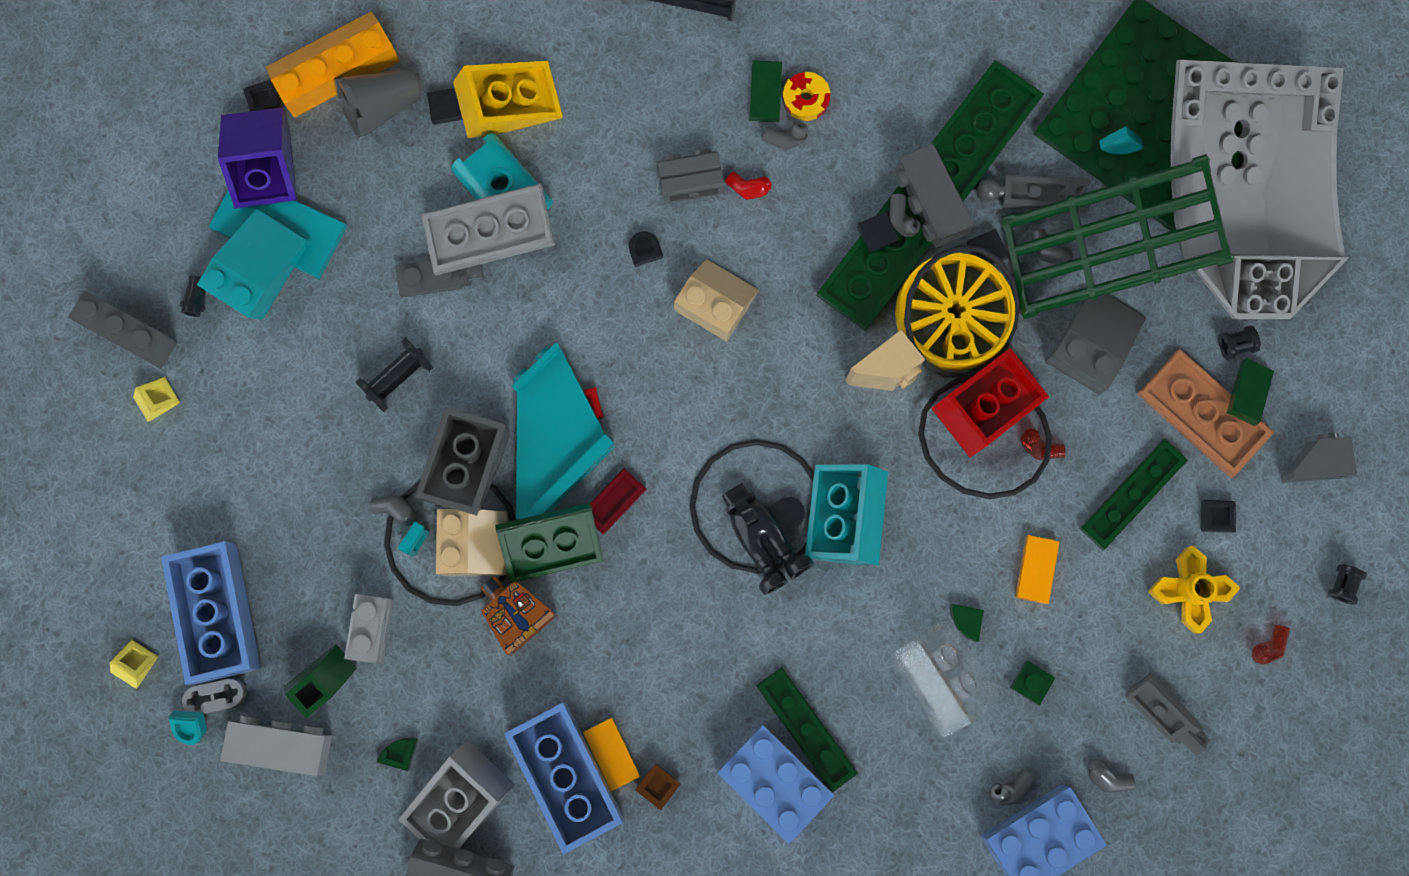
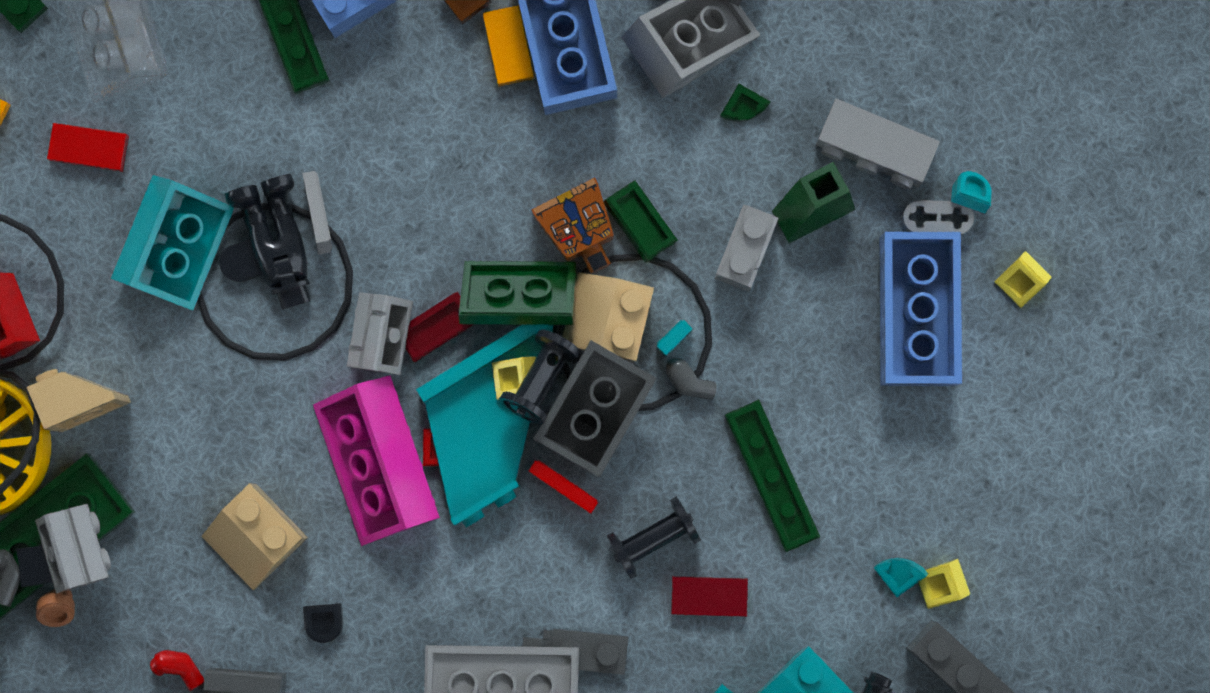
camera: 160 degrees left, 5 degrees up
(190, 397) = (900, 574): none -> teal tile
(311, 450) = (772, 475): none -> dark green tile
(342, 342) = (709, 596): none -> dark red tile
(464, 631) = (640, 221): none -> dark green tile
(476, 397) = (563, 486): none -> red tile
(511, 475) = (540, 377): none -> black hose
(534, 473) = (510, 374): none -> light yellow slope
(633, 380) = (375, 460): none -> dark pink slope
(656, 481) = (379, 333): none -> light grey brick
(733, 568) = (317, 212): none -> light grey tile
(852, 248) = (73, 548): none -> light grey brick
(856, 205) = (55, 609): none -> nougat tile
(940, 577) = (87, 147): none -> red tile
(967, 621) = (71, 91): dark green tile -> none

